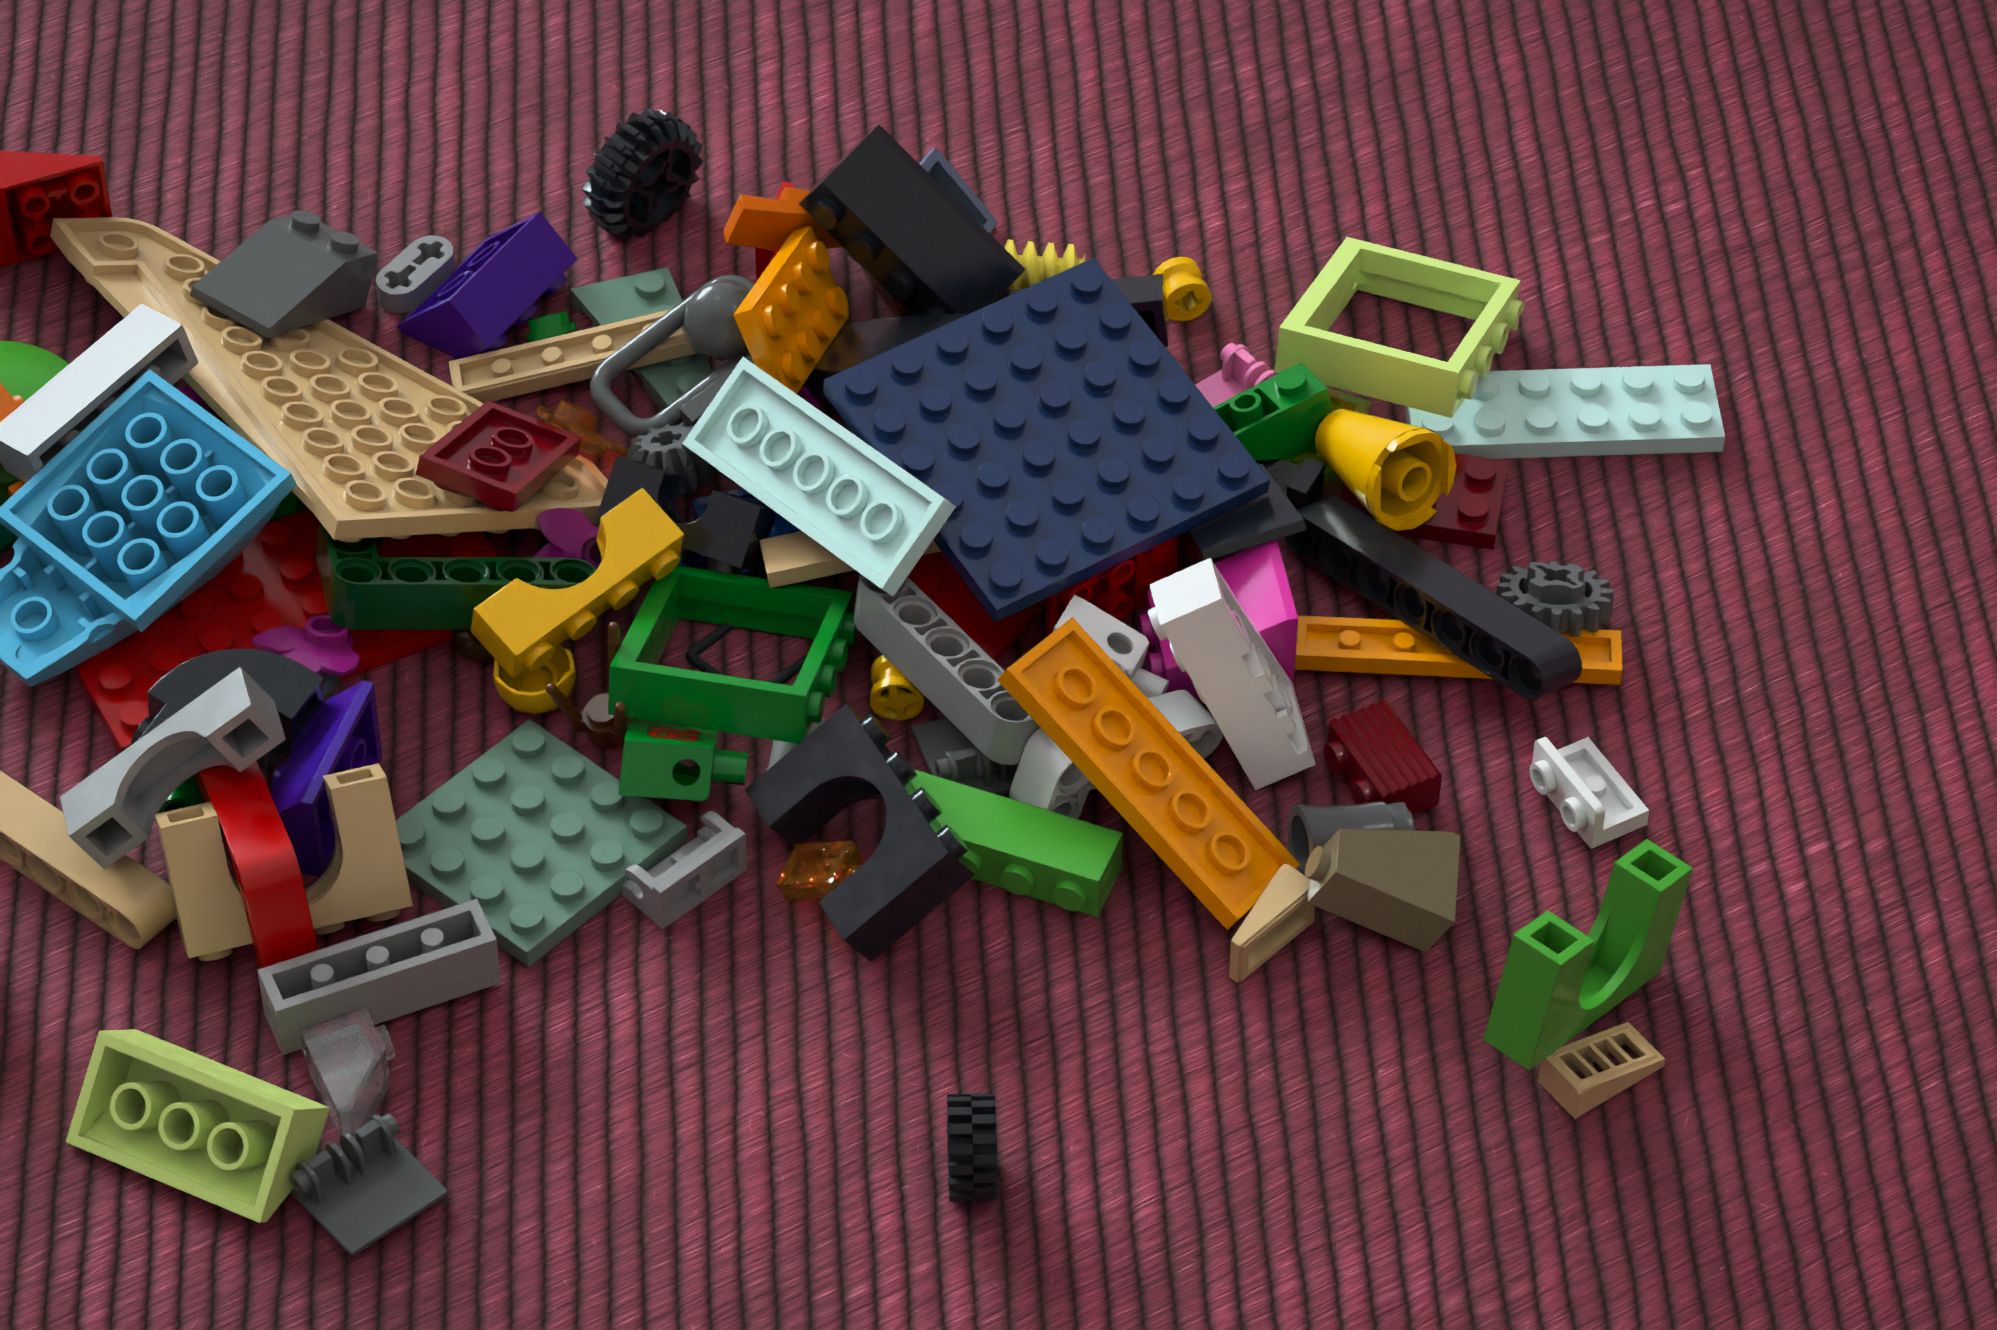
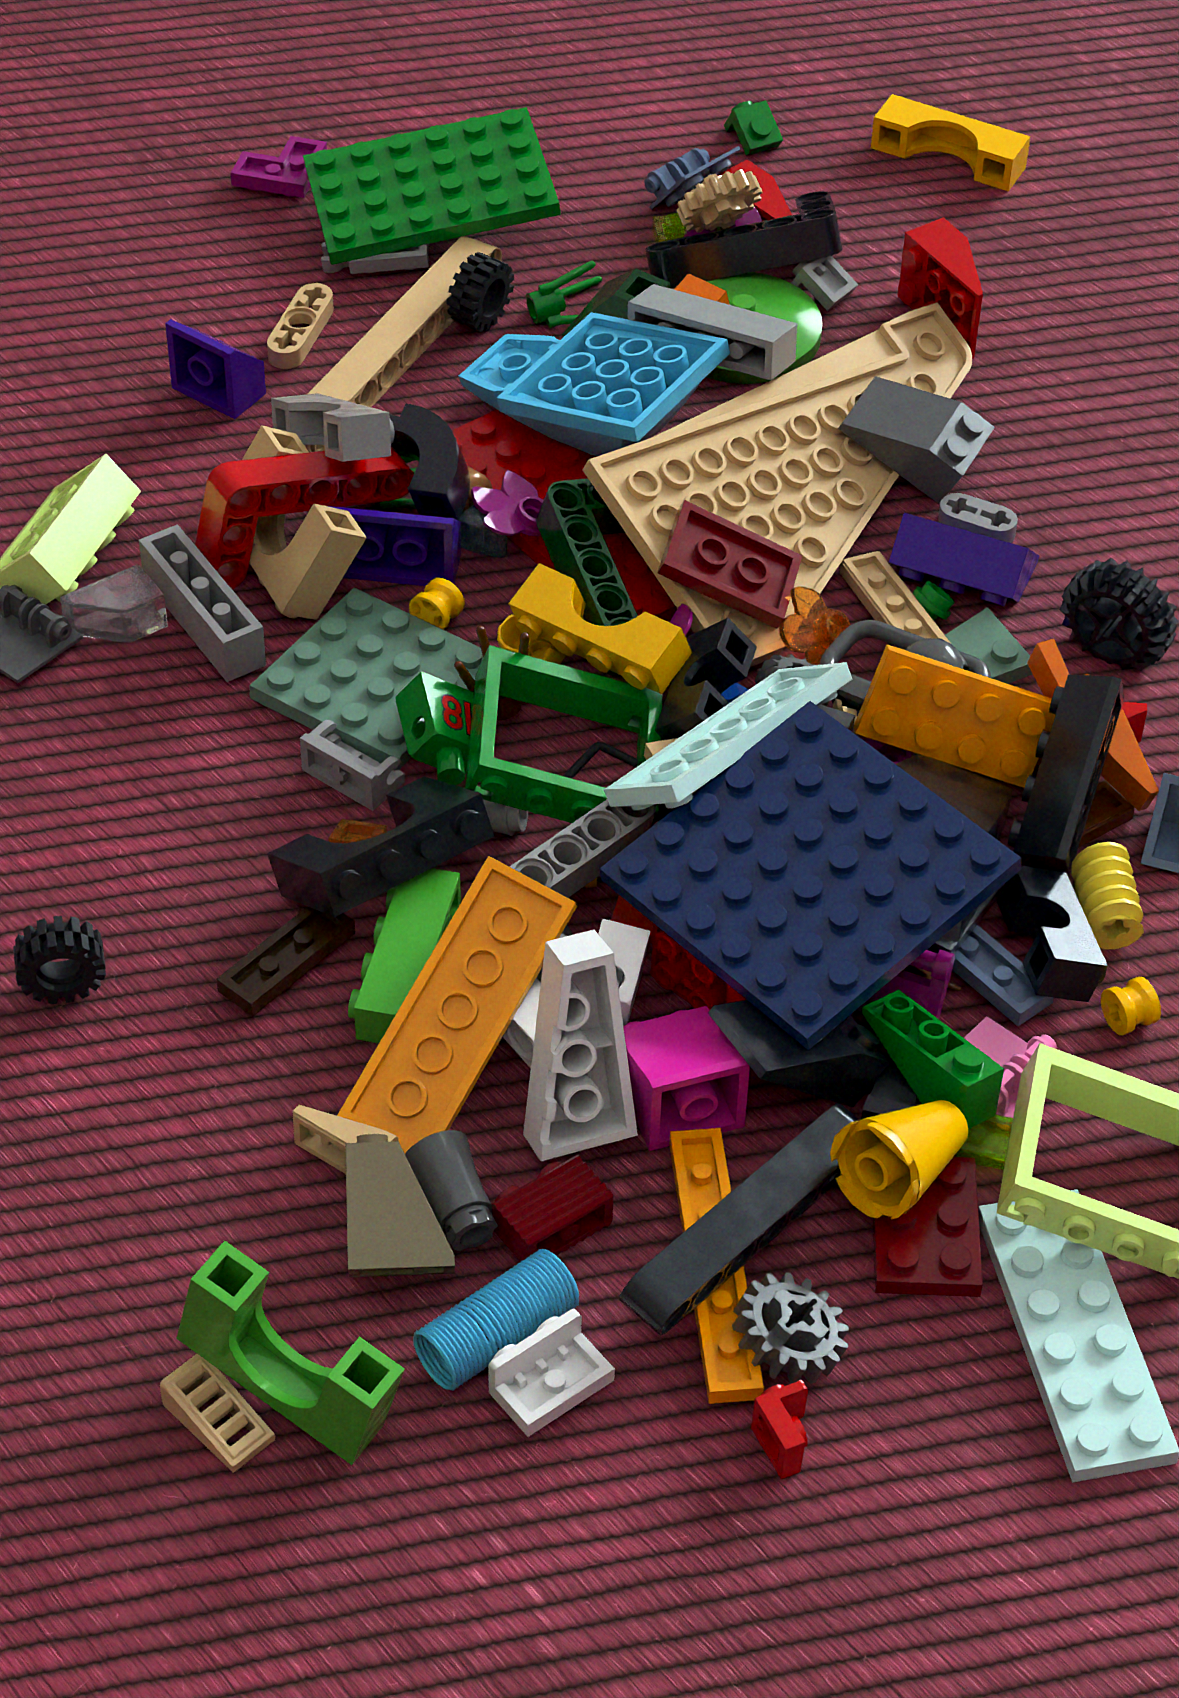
camera: 80 degrees right, 0 degrees up
(431, 758) = (438, 603): none -> yellow wheel
(986, 960) = (284, 958): none -> dark brown plate
(1520, 818) = (507, 1312): none -> medium azure piece
(1664, 630) = (779, 1428): none -> red bracket

